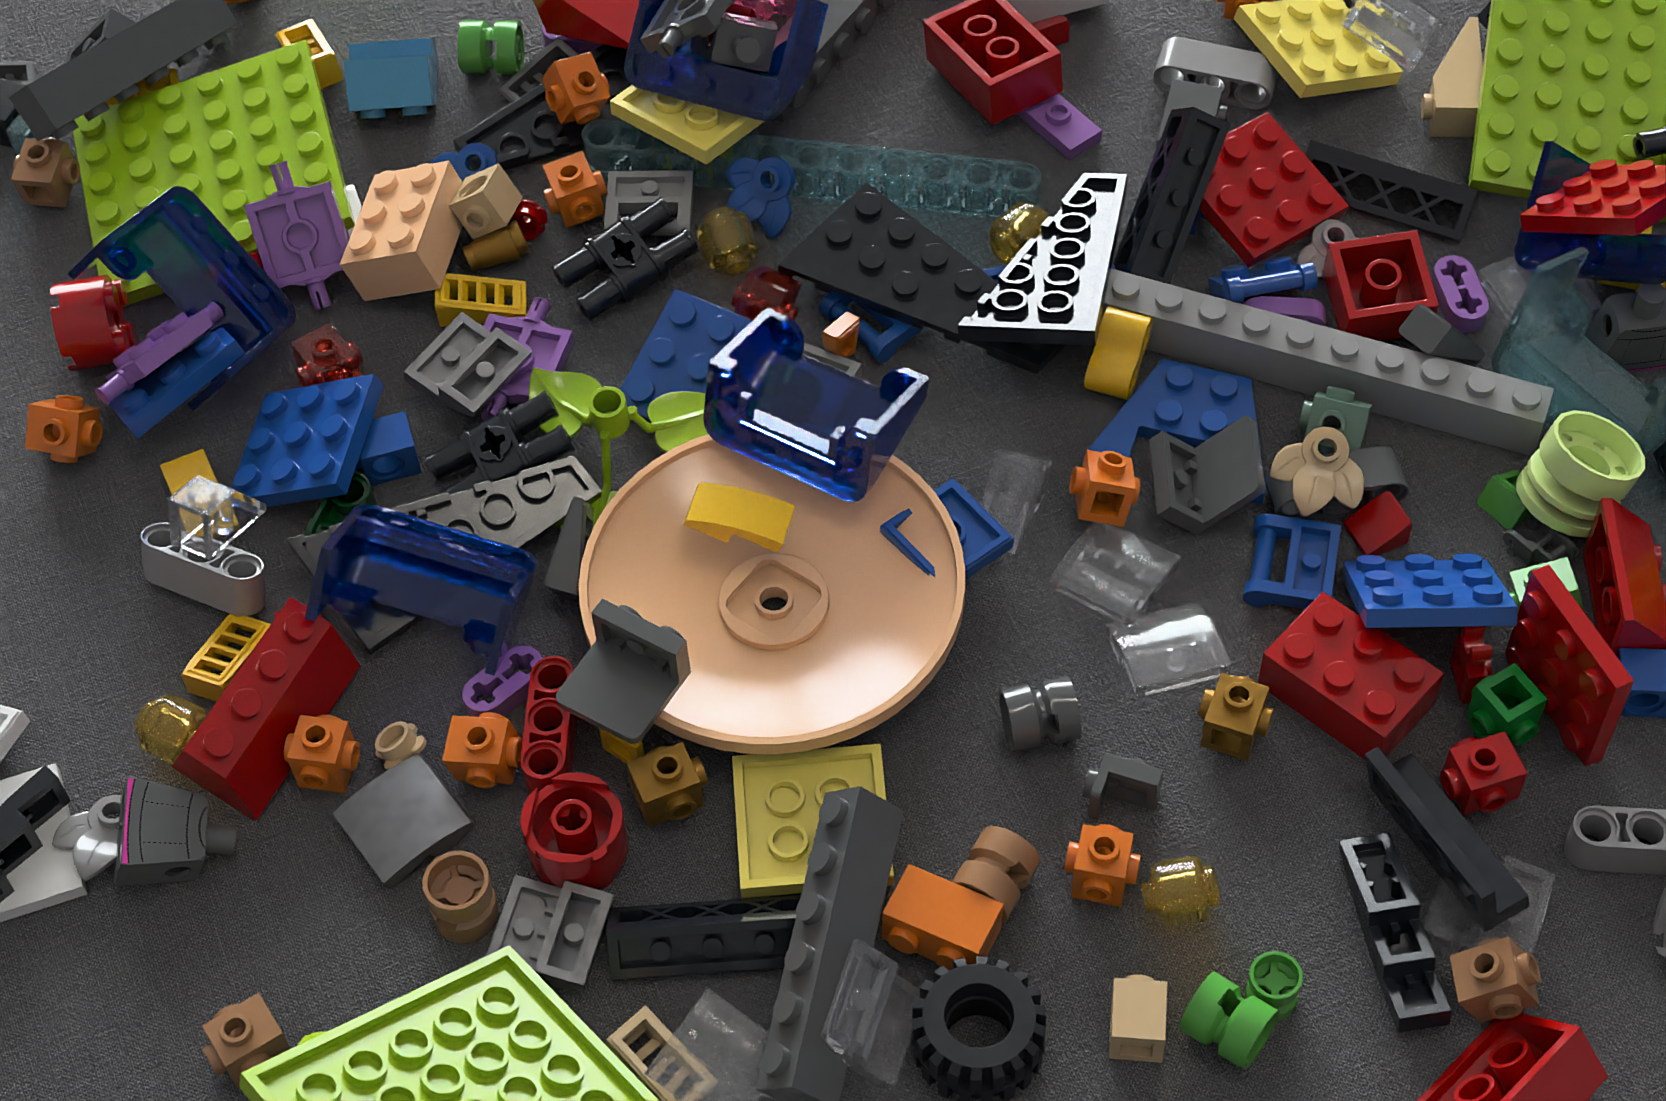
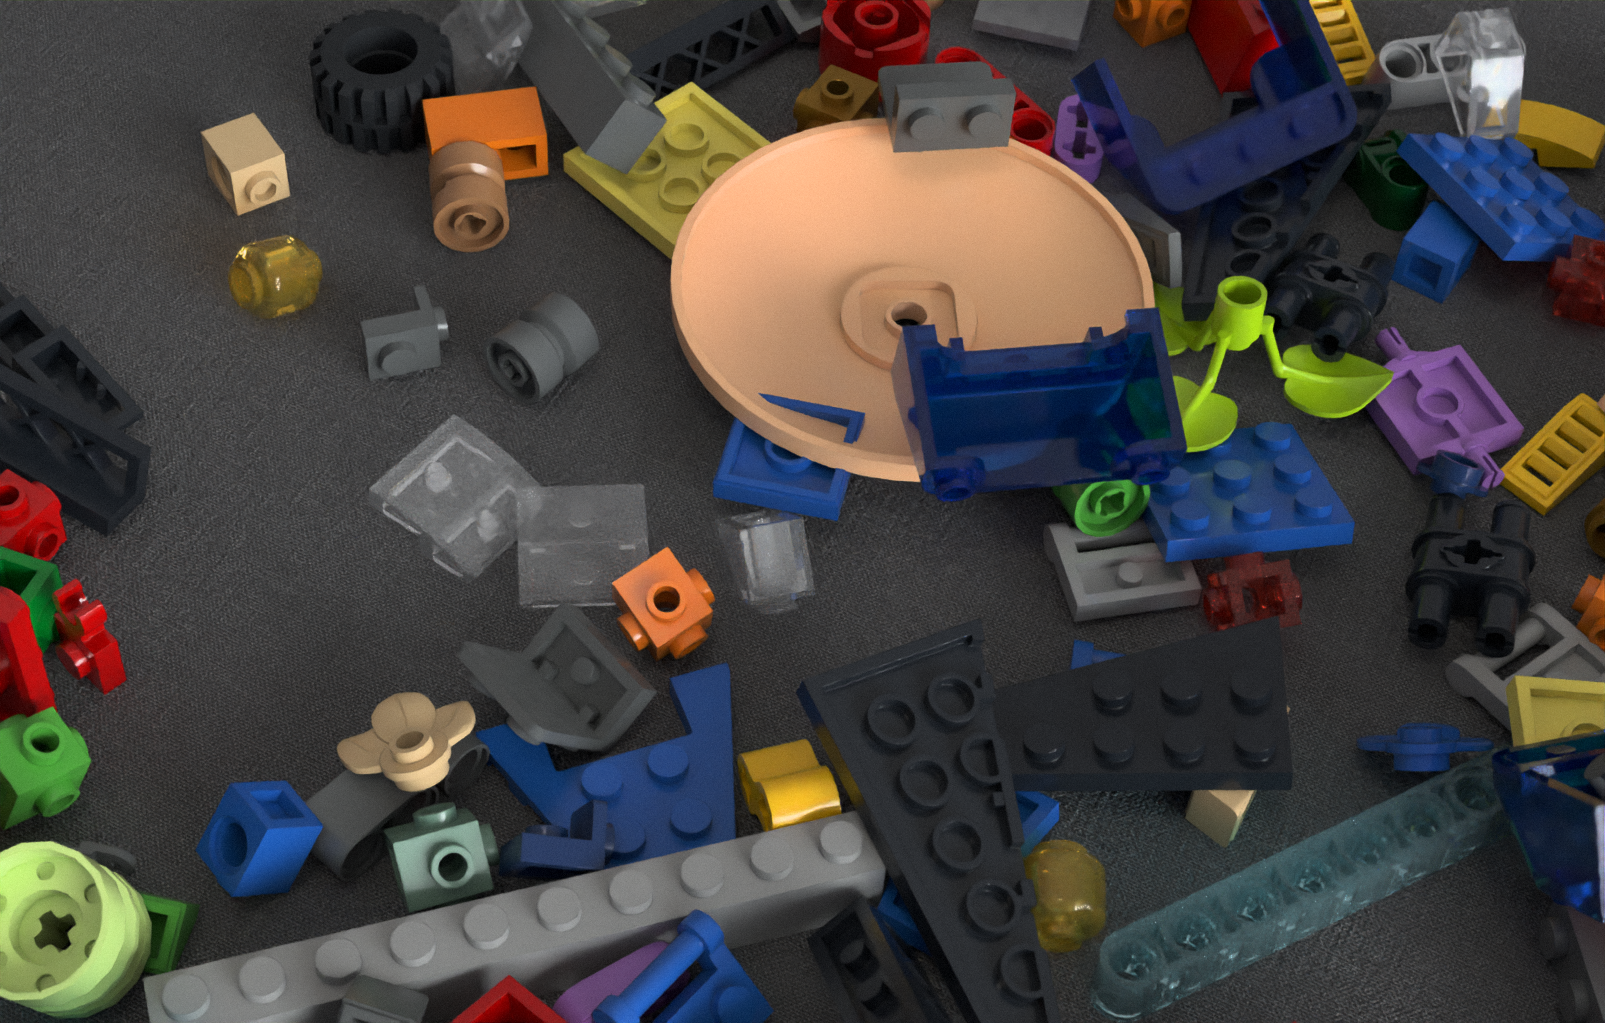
camera: 135 degrees right, 5 degrees down
(398, 743) = (1105, 41): tan plate -> none
(466, 365) = (1464, 348): flat silver slope -> none
(482, 749) = (1030, 55): orange brick -> none
(565, 309) = (1454, 474): none -> dark blue plate
(727, 240) = (1392, 670): clear yellow head -> none
(740, 512) = (1007, 288): yellow slope -> none
(842, 335) = (1133, 625): orange tile -> none
(1102, 864) = (370, 254): orange brick -> none
(1233, 1023) = (154, 194): bright green wheel -> none
(1234, 715) = (333, 458): pearl gold brick -> none
(1273, 376) = (550, 855): none -> dark blue bracket
(1277, 974) = (130, 247): bright green wheel -> none
(1308, 566) = (358, 668): blue plate -> none
(1349, 678) = (224, 556): red brick -> none
(1379, 525) = (302, 767): red slope -> none
(1428, 592) = (179, 669): blue plate -> none
(1433, 481) = (258, 838): none -> blue brick

